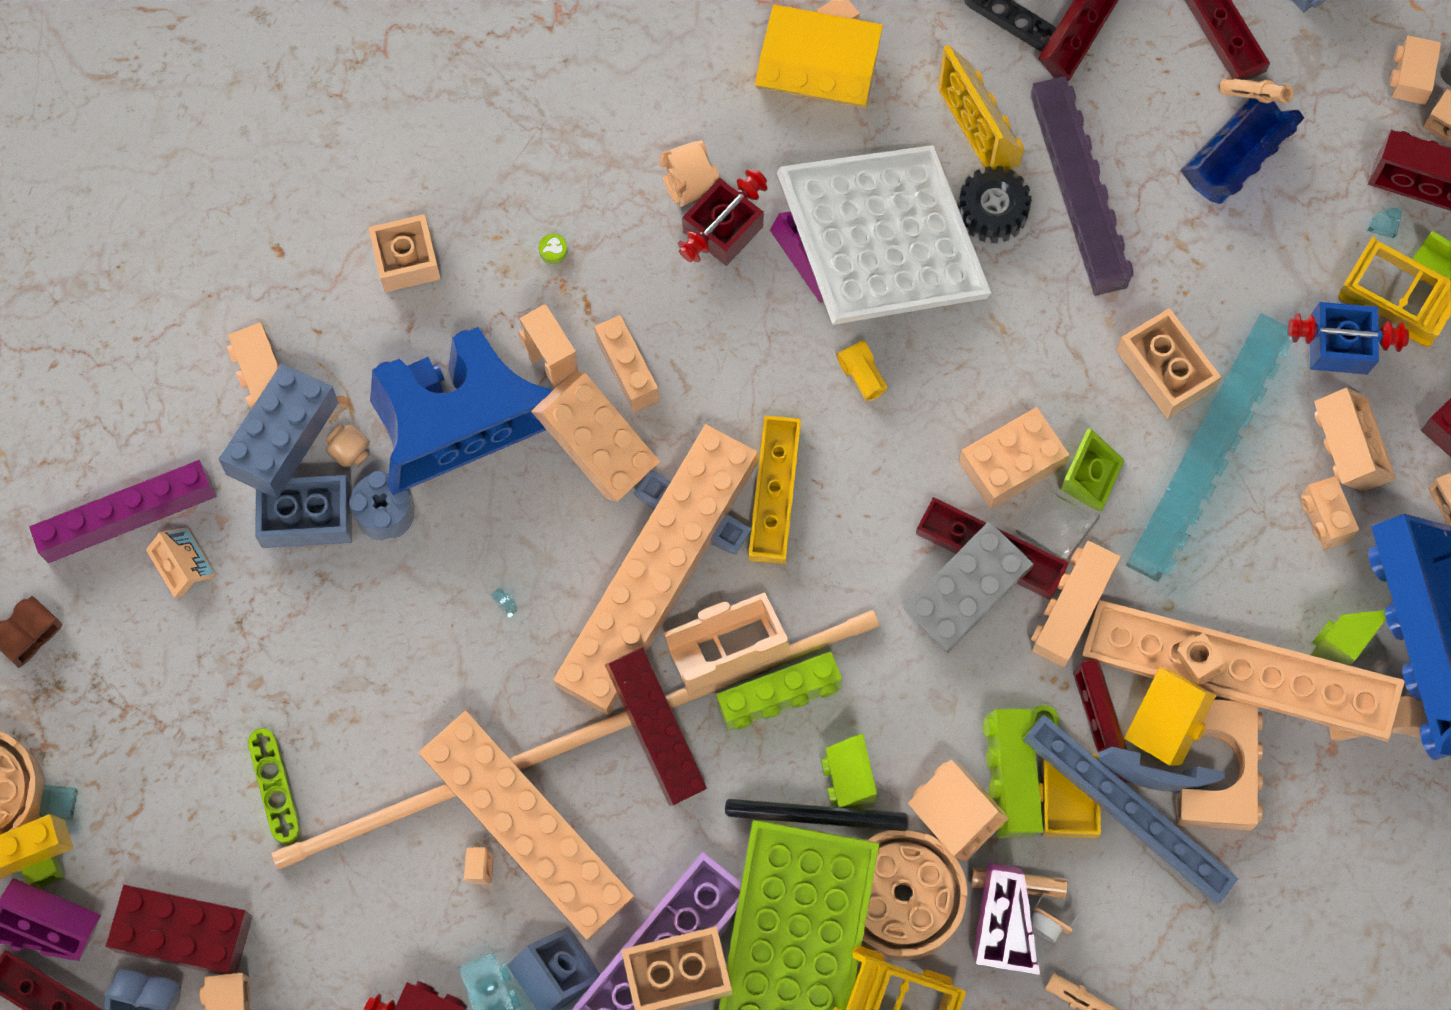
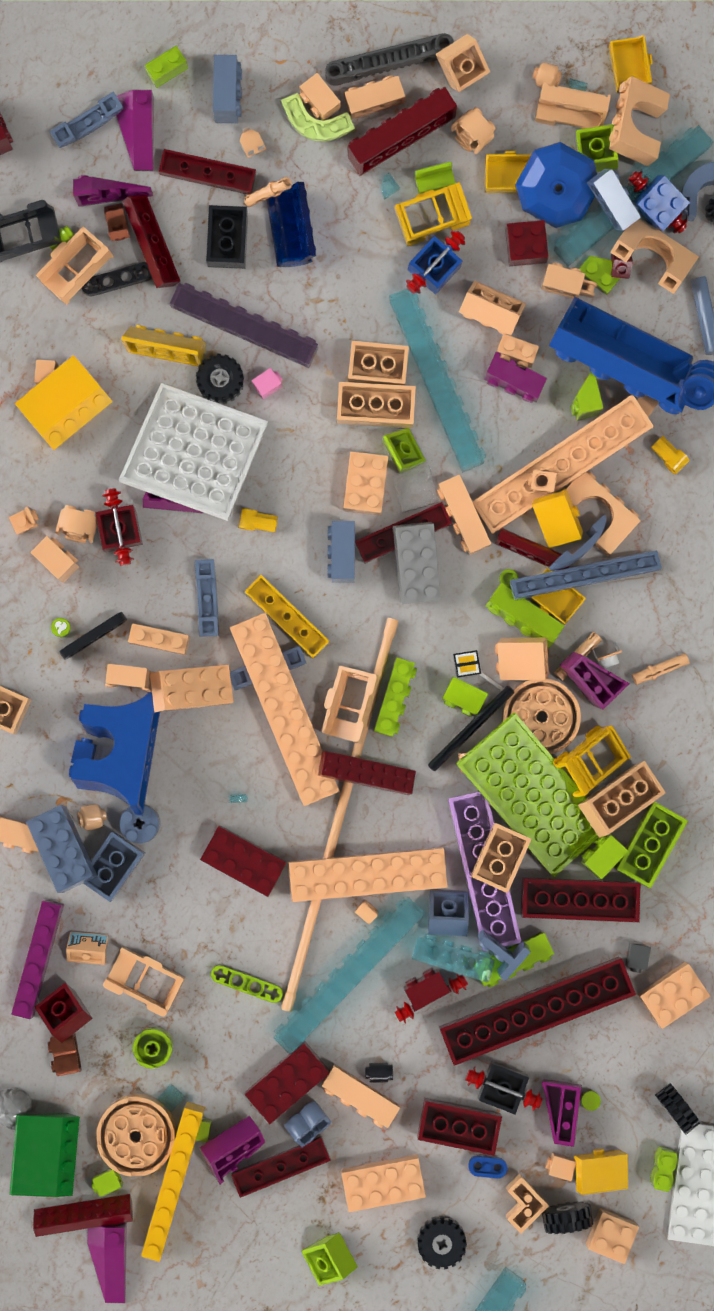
camera: 55 degrees left, 15 degrees up
(74, 586) = (63, 1012): none -> dark red brick
(92, 722) = (143, 1052): none -> lime brick
(176, 625) = (122, 970): none -> light nougat piece
(379, 904) = (349, 975): none -> clear light blue brick
(428, 662) = (243, 861): none -> dark red brick
(571, 289) = (93, 635): none -> black beam
(629, 178) = (53, 557): none -> light nougat brick
(647, 119) = (24, 520): none -> light nougat bracket
(723, 381) = (207, 597): none -> sand blue slope
(895, 755) = (468, 665): none -> piece
(907, 489) = (341, 552): none -> sand blue brick
(1035, 259) = (267, 383): none -> bright pink brick
(1118, 397) = (376, 404): none -> light nougat brick
(1164, 89) = (227, 237): none -> black brick
(1293, 534) = (515, 378): none -> magenta wedge
(1296, 37) = (251, 142): none -> light nougat piece
(1370, 808) = (673, 458): none -> yellow piece
(1376, 95) = (313, 128): none -> yellowish green plate

